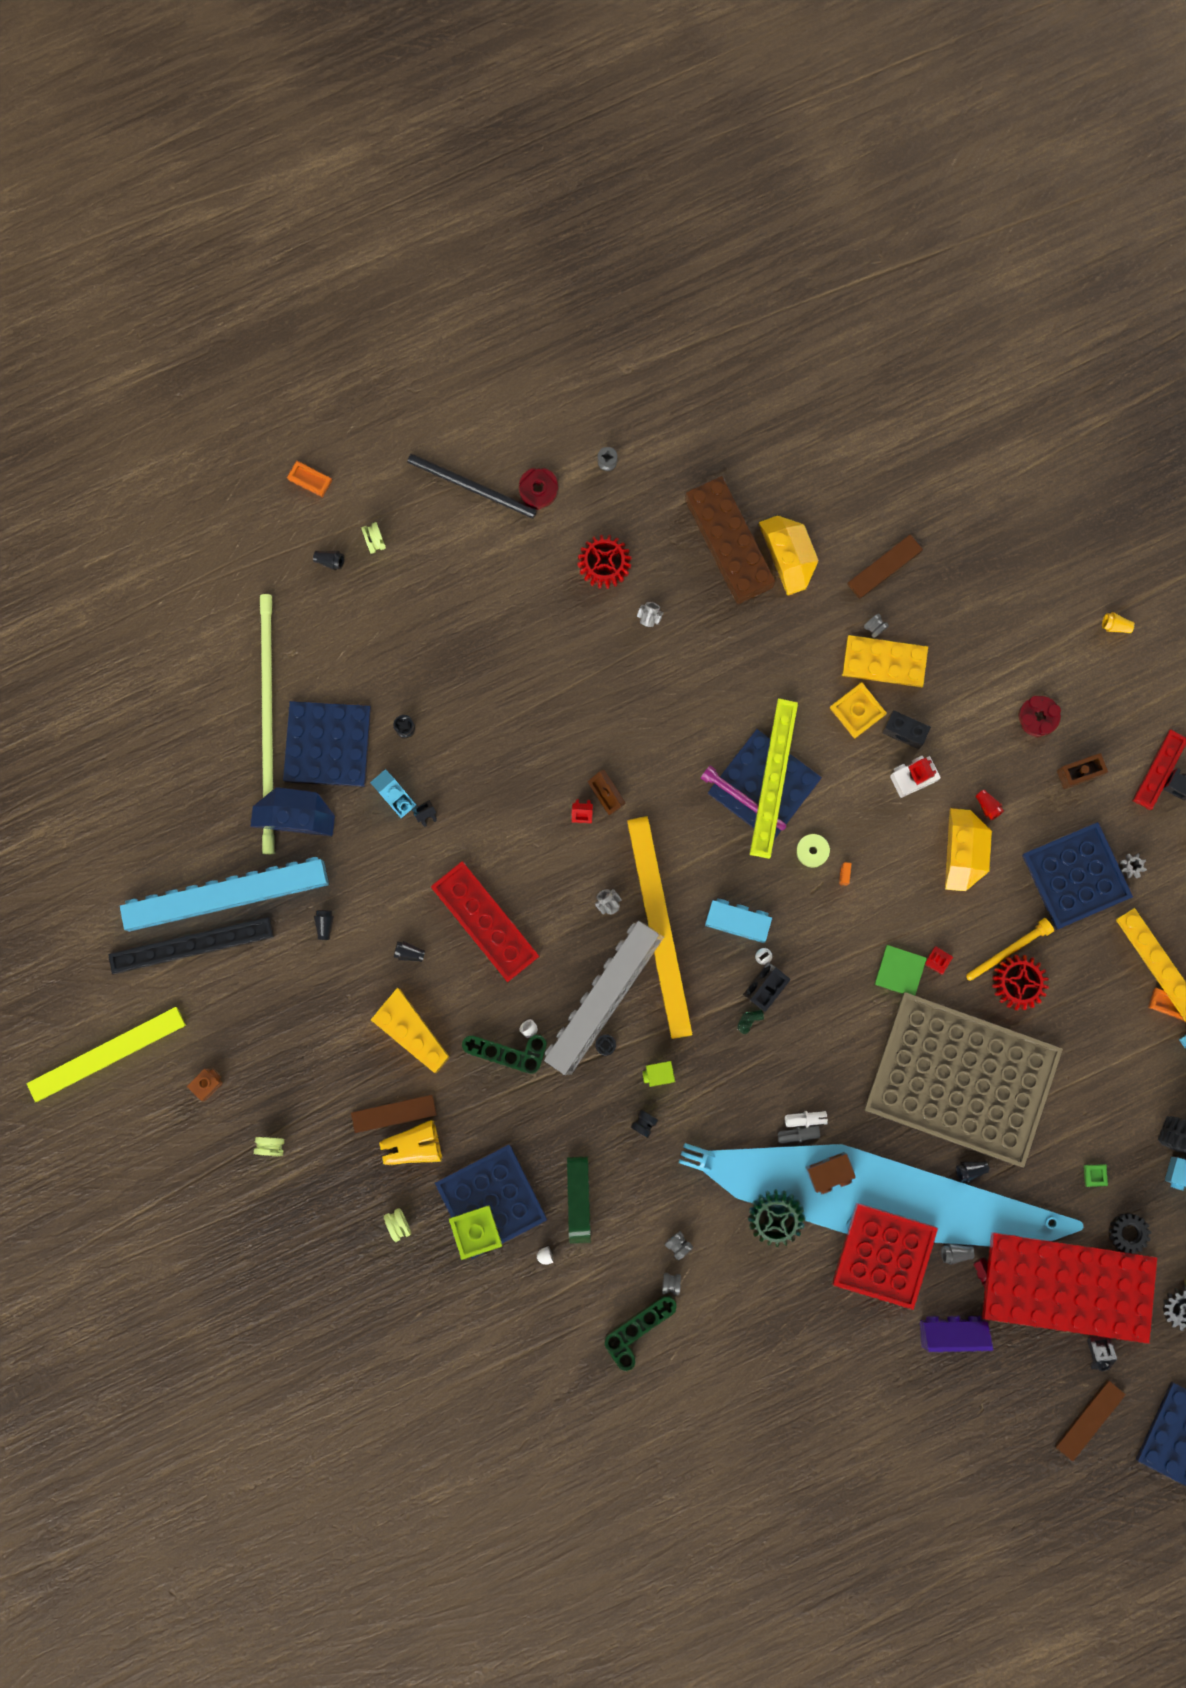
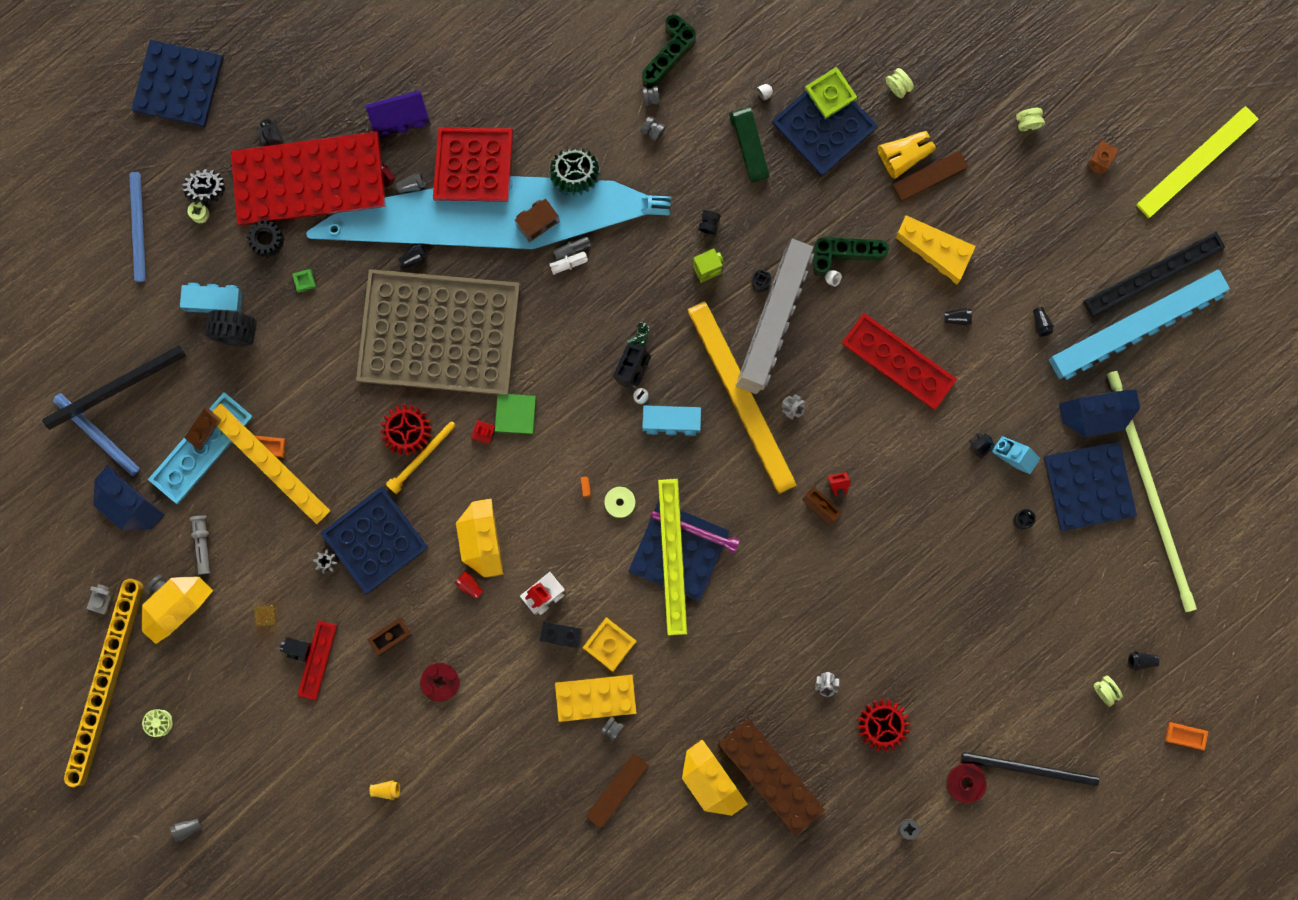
camera: 165 degrees right, 0 degrees up
(1090, 1420) = (268, 77): reddish brown tile -> none

